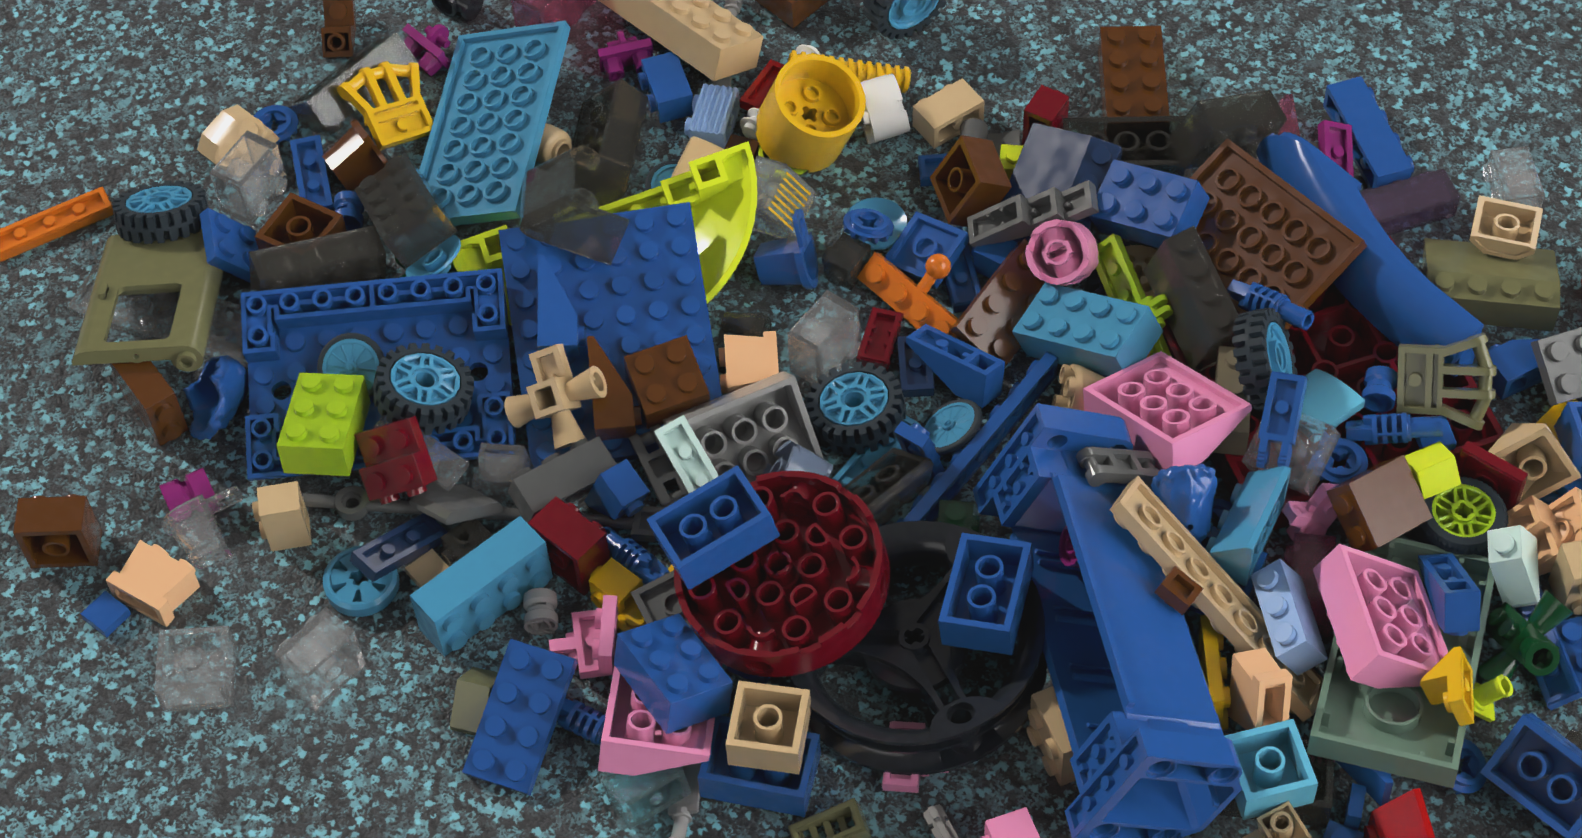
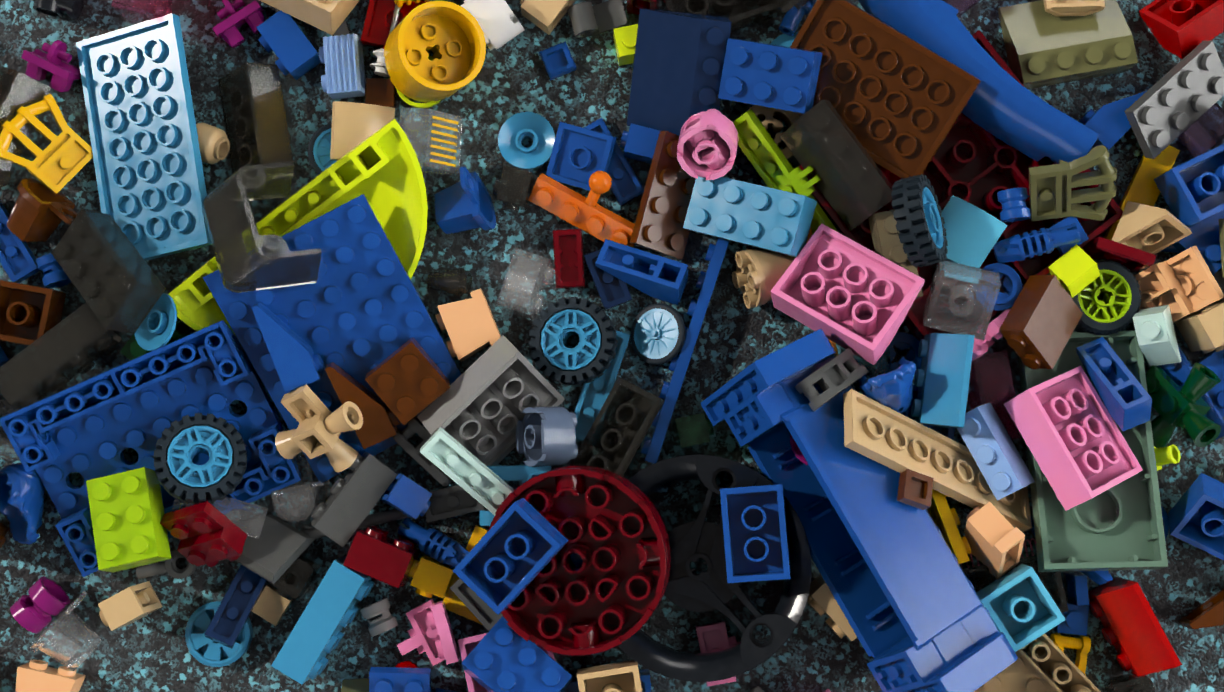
camera: 20 degrees left, 30 degrees up
(351, 356) = (126, 447): dark azure wheel -> none
(868, 225) = (517, 144): blue gear -> none
(916, 440) = (645, 381): blue plate -> none
(969, 179) = (599, 78): reddish brown brick -> none
(1020, 216) = (669, 108): dark grey slope -> none
(1259, 297) = (908, 160): blue hinge -> none
(1281, 416) = (955, 287): blue hinge -> none
(1452, 684) = (1146, 481): yellow slope -> none

